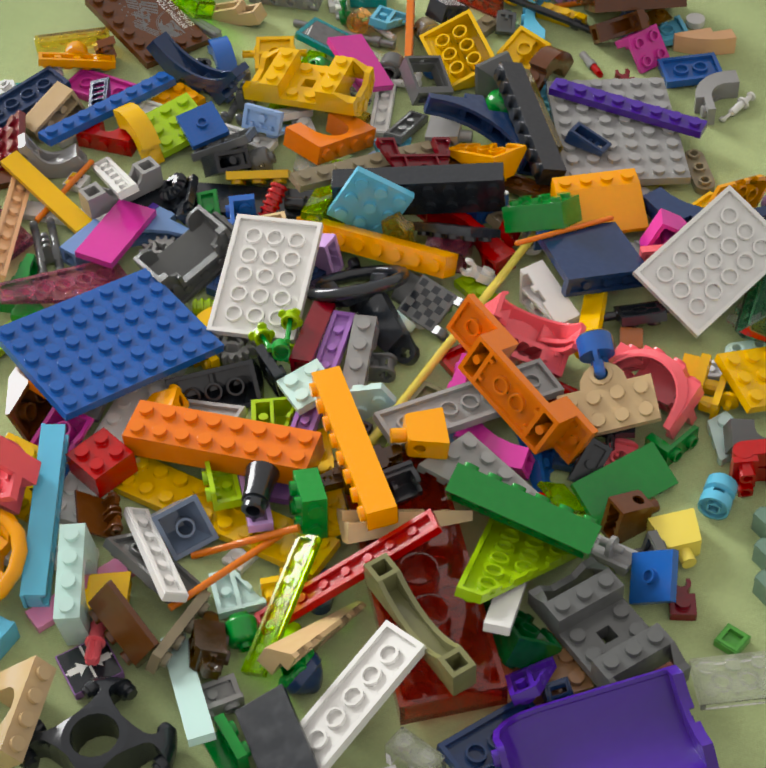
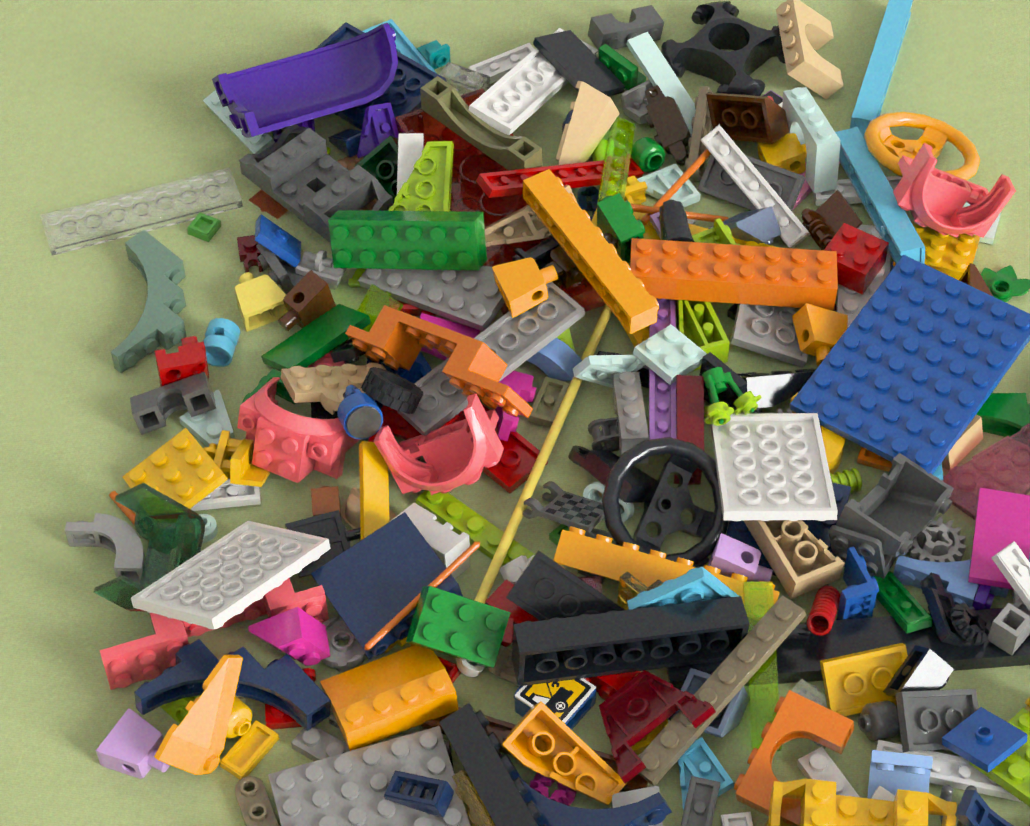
camera: 165 degrees right, 5 degrees up
(580, 368) = (392, 390): none -> black tyre

